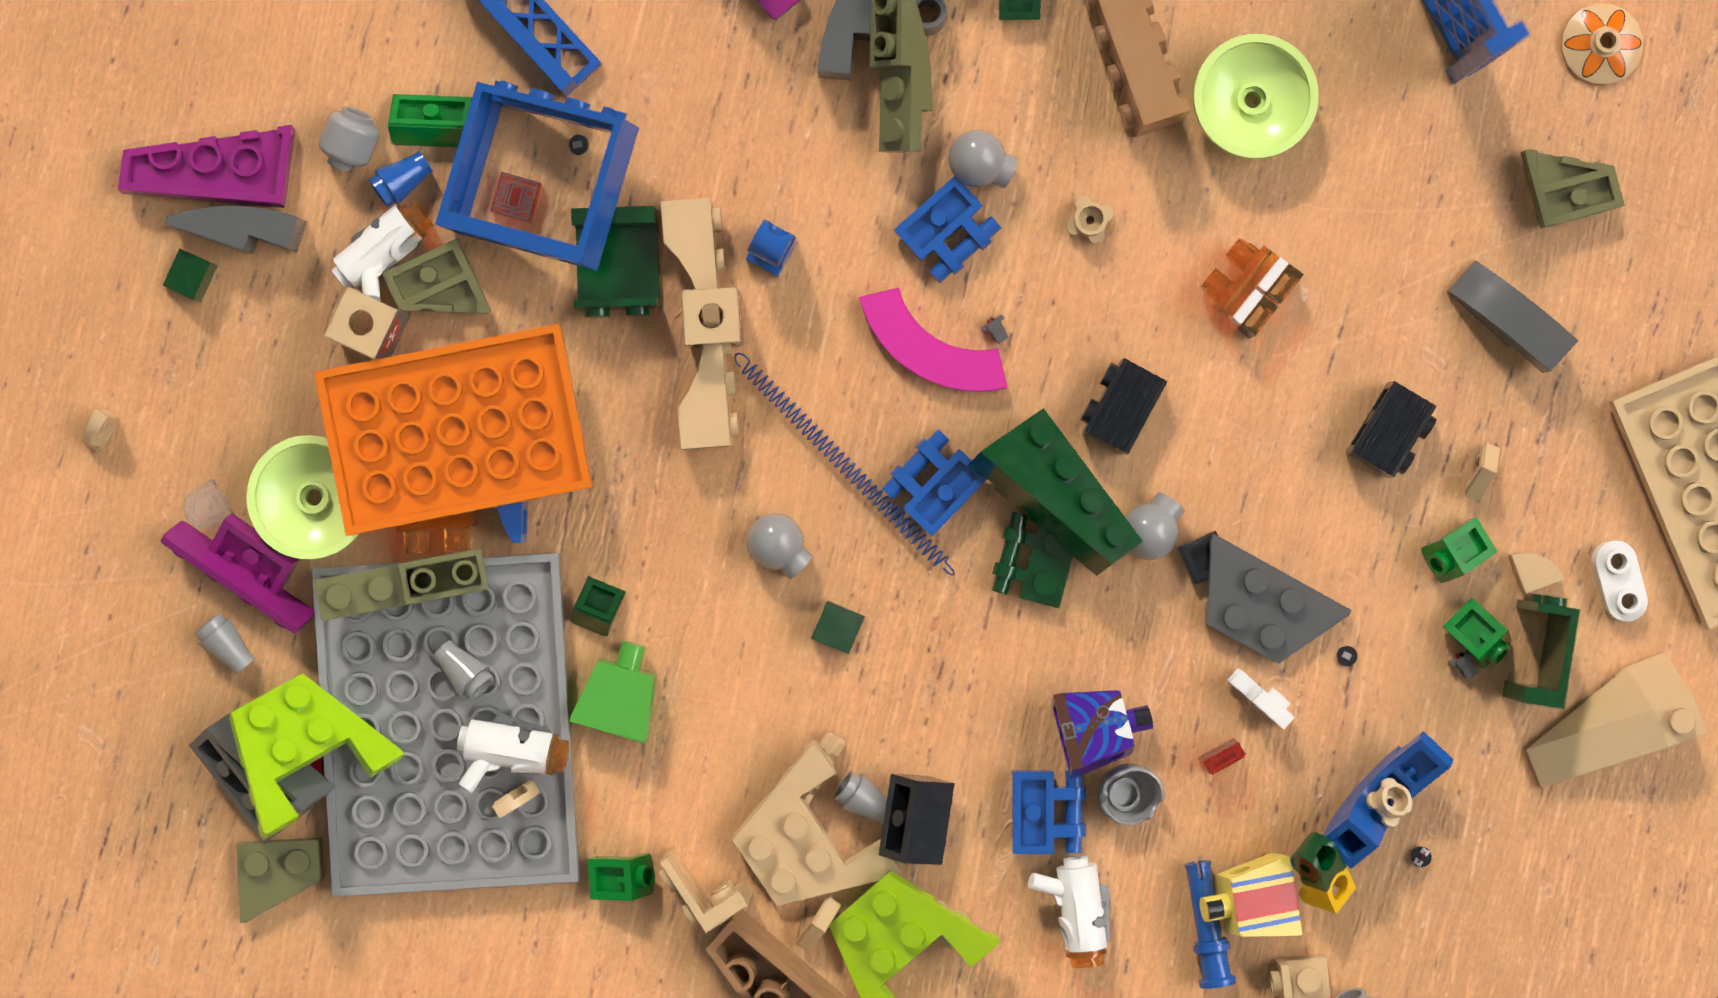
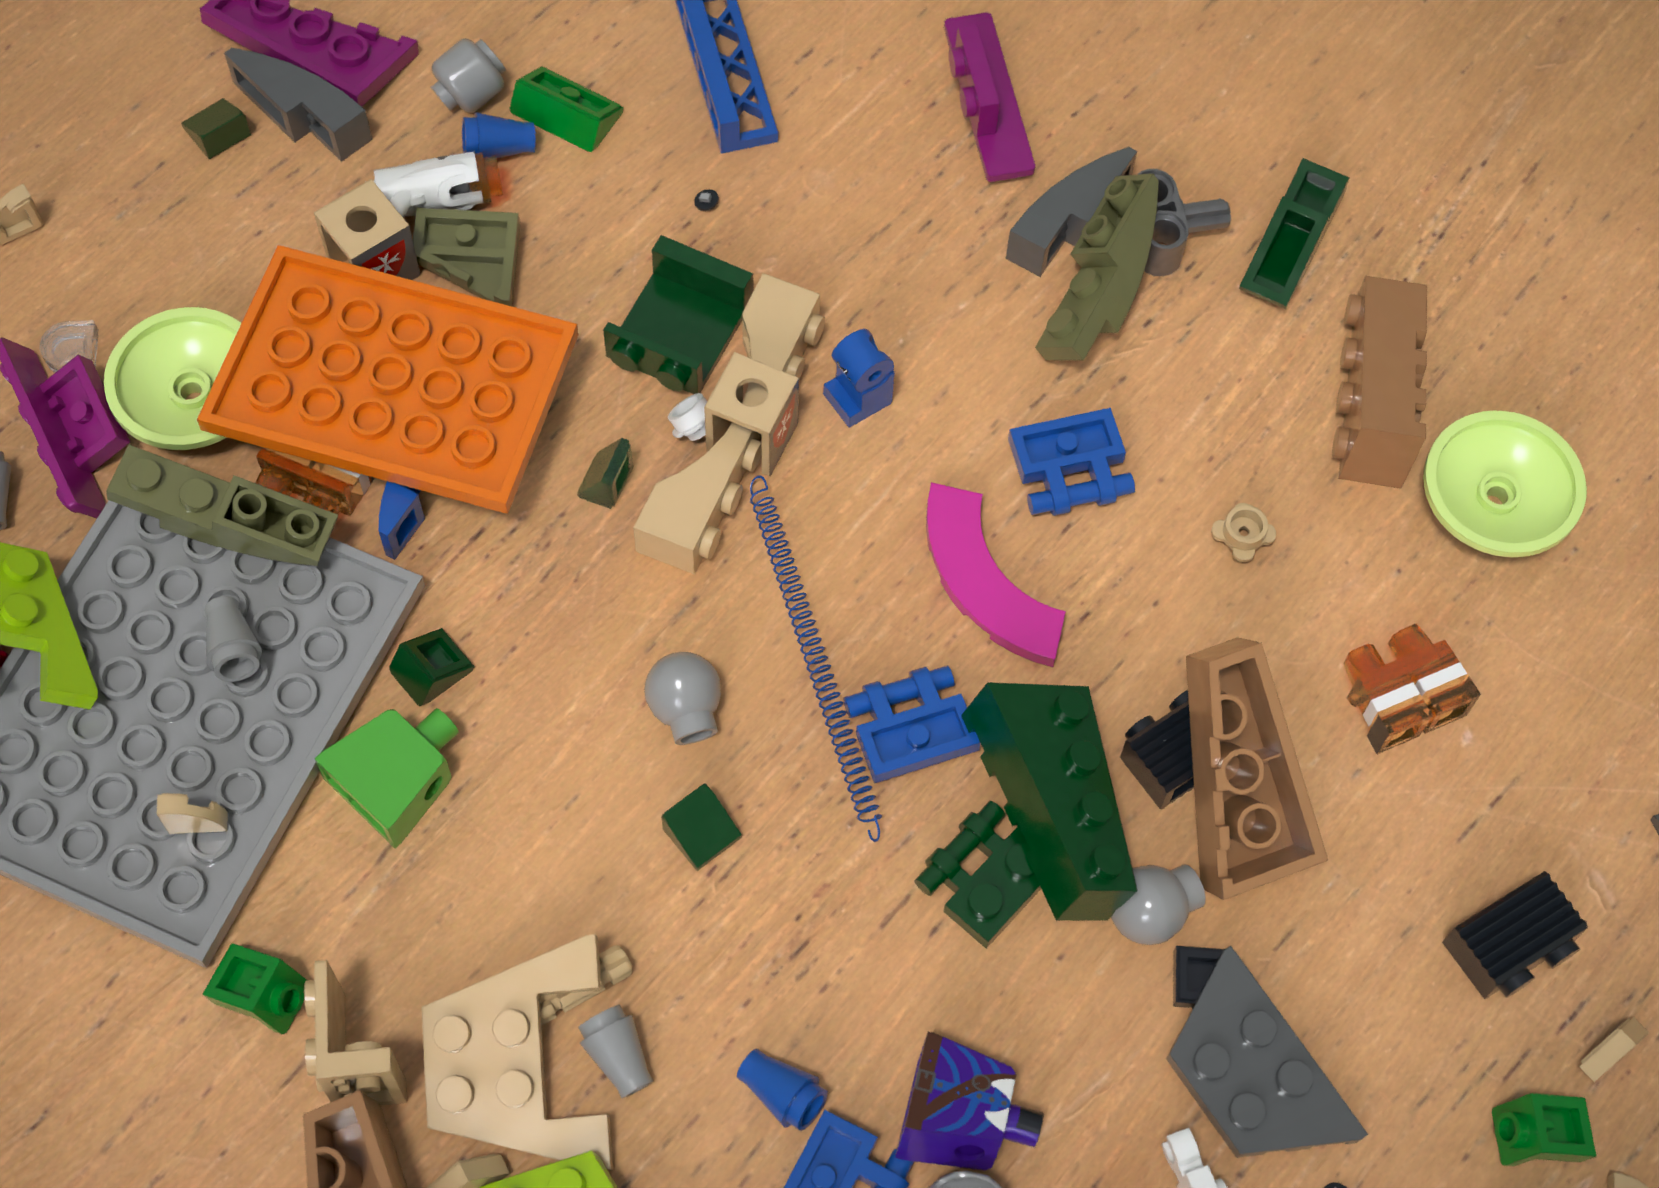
camera: 25 degrees right, 25 degrees down
(472, 156) = (649, 270): blue window -> none
(511, 745) = (227, 747): white piece -> none
(516, 197) = (607, 215): clear red tile -> none
(633, 407) = (607, 474): none -> slope
(668, 334) = (689, 417): none -> white plate
(916, 819) = (668, 1102): black brick -> none
(980, 160) = (1147, 407): light grey piece -> none
(981, 770) = (785, 1090): none -> blue cone
(996, 329) = (1073, 595): dark grey piece -> none
(1180, 430) = (1246, 774): none -> medium nougat wedge

